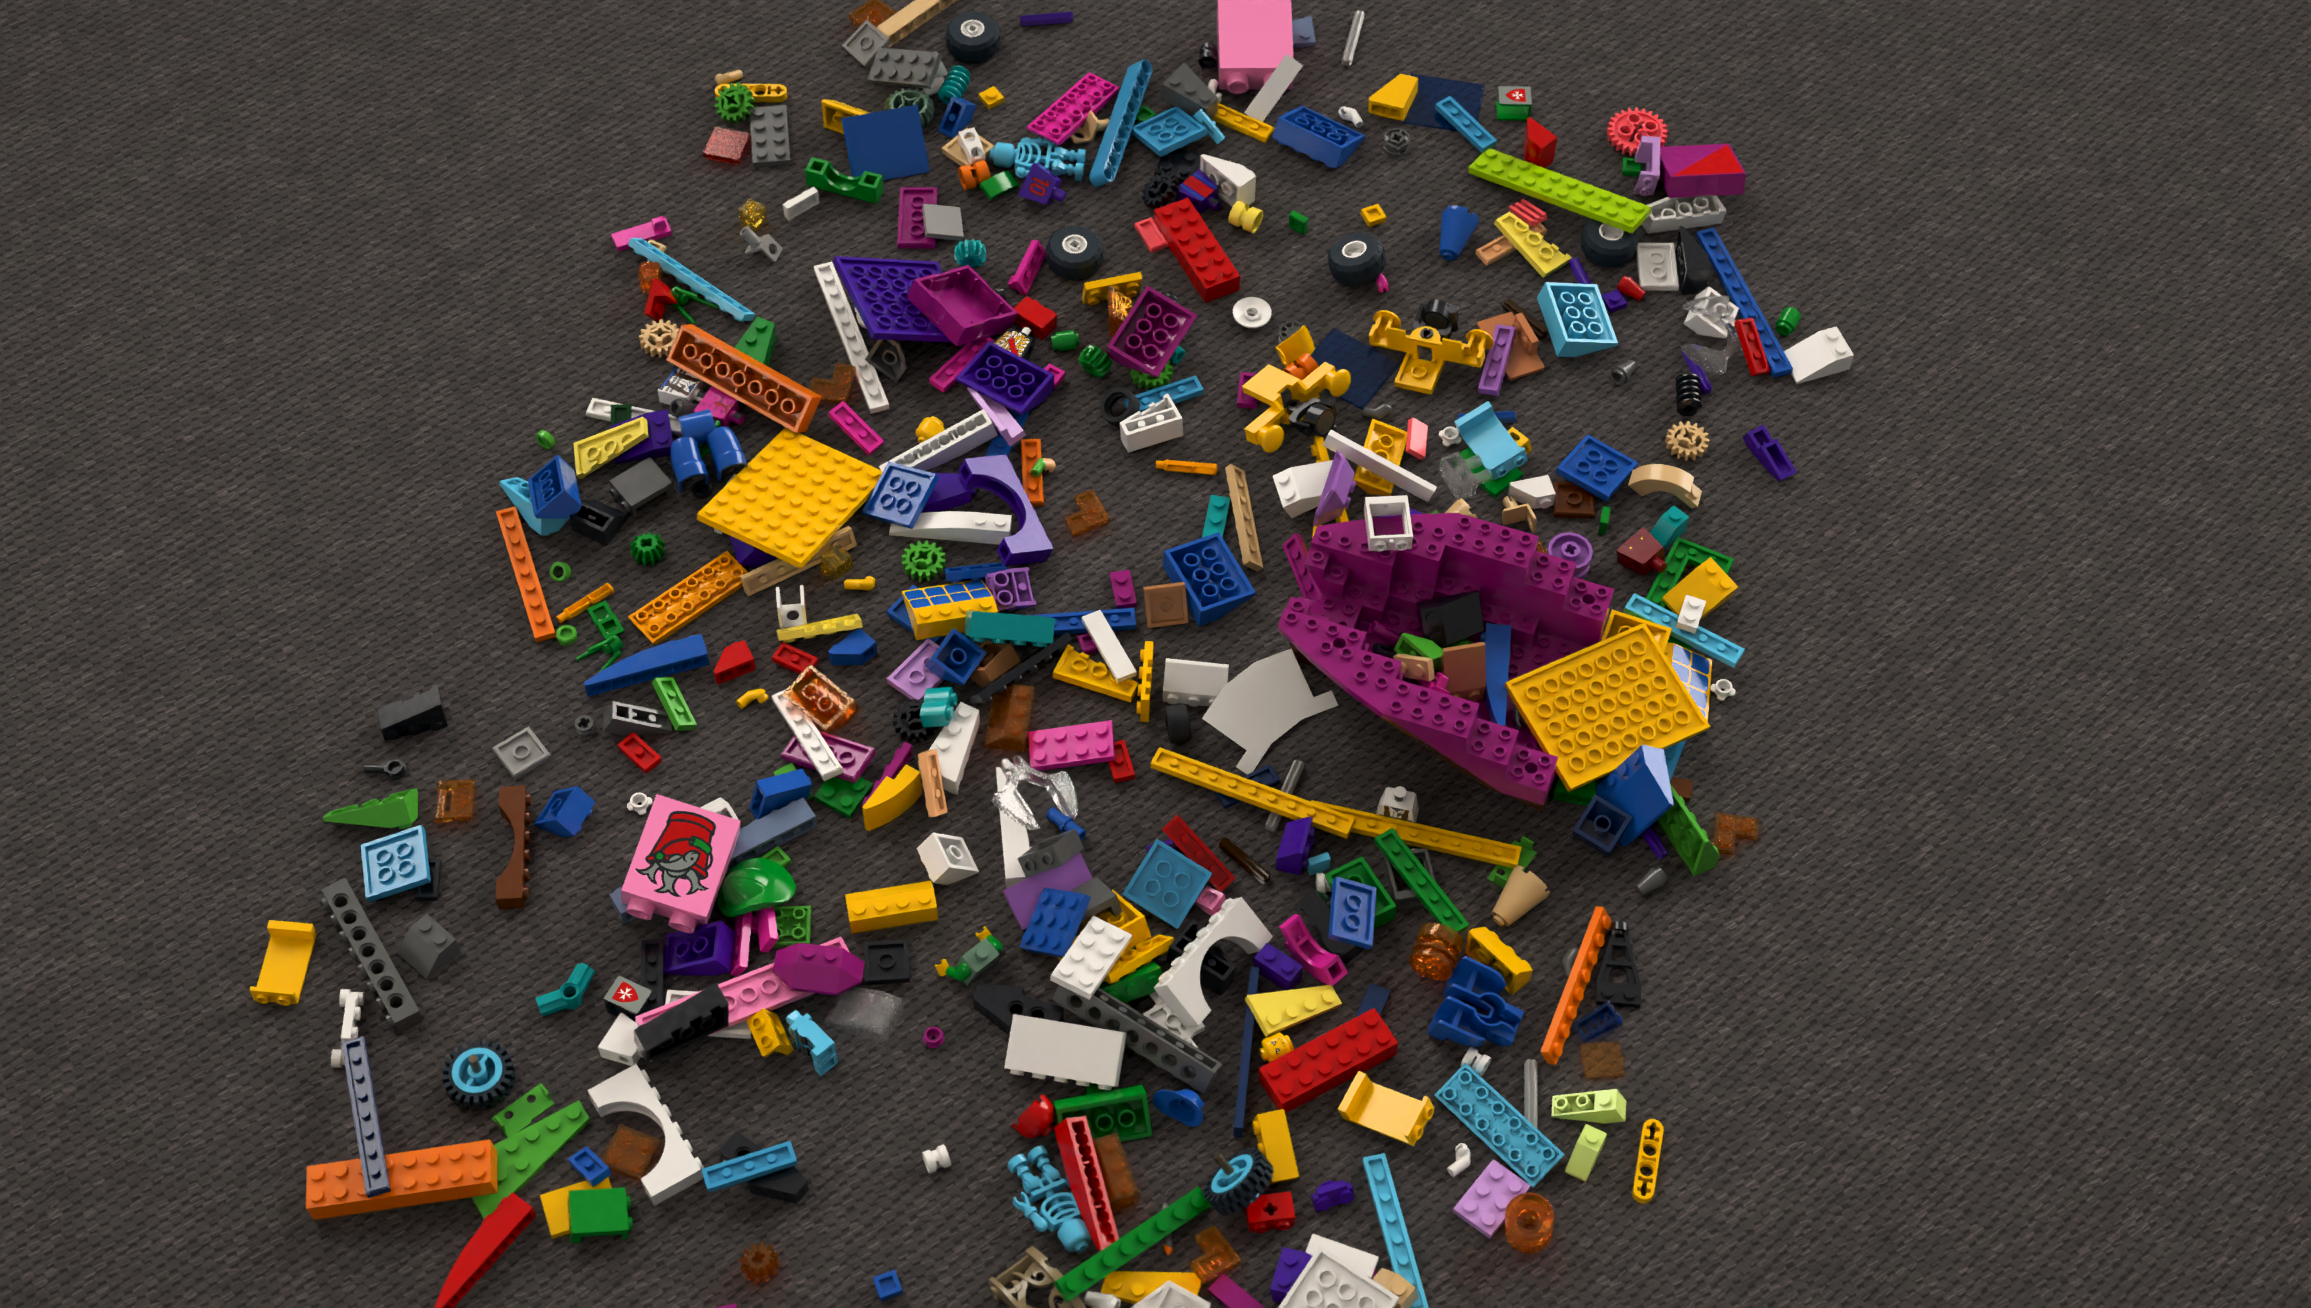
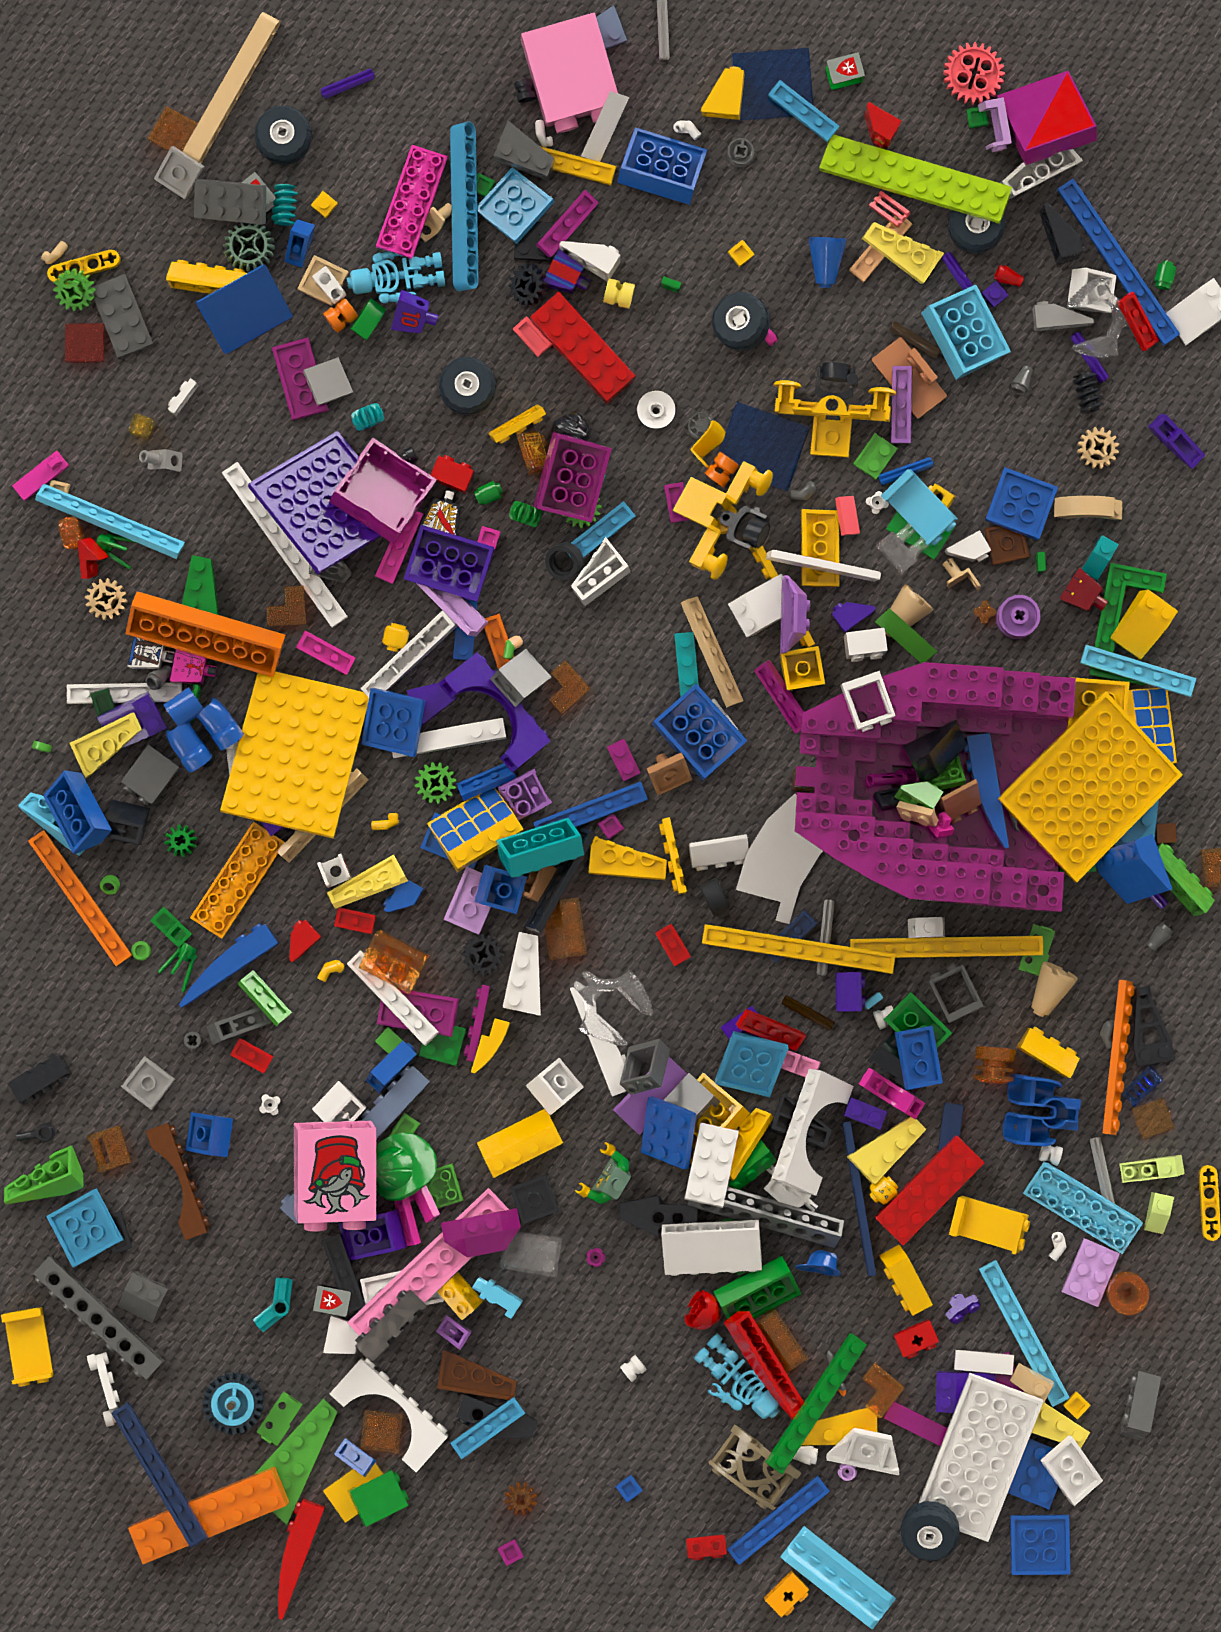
camera: 20 degrees left, 30 degrees up
(585, 603) = (143, 916): light orange piece -> none
(741, 1114) = (471, 1378): none -> reddish brown wing
(752, 1072) = (454, 1332): none -> medium lavender slope
(824, 177) = (208, 360): green arch -> none
(836, 562) = (356, 808): clear yellow brick -> none
(932, 783) = (521, 1023): light nougat plate -> none
(938, 707) = (502, 946): teal brick -> none
(1028, 268) = (428, 412): dark pink hinge -> none
(1041, 483) = (520, 677): none -> panel
(1064, 823) = (645, 1021): blue pin -> none
(1072, 745) = (627, 942): dark pink plate -> none
(1109, 646) = (630, 831): white tile -> none
(1187, 467) = (646, 606): light orange piece -> none
(1212, 129) = (552, 188): medium azure pin -> none
(1223, 150) = (567, 223): none -> magenta plate
(1238, 1180) = (887, 1328): black wheel -> none
(1420, 881) = (967, 1004): green plate -> none
(1458, 400) = (875, 456): none -> bright green plate
(1602, 825) = (1107, 901): dark blue slope -> none
(1657, 267) = (1027, 239): white tile -> none
(1672, 329) = (1053, 316): none -> light grey slope
(1690, 614) = (1141, 655): white plate -> none
(1722, 684) = (1182, 712): white plate -> none

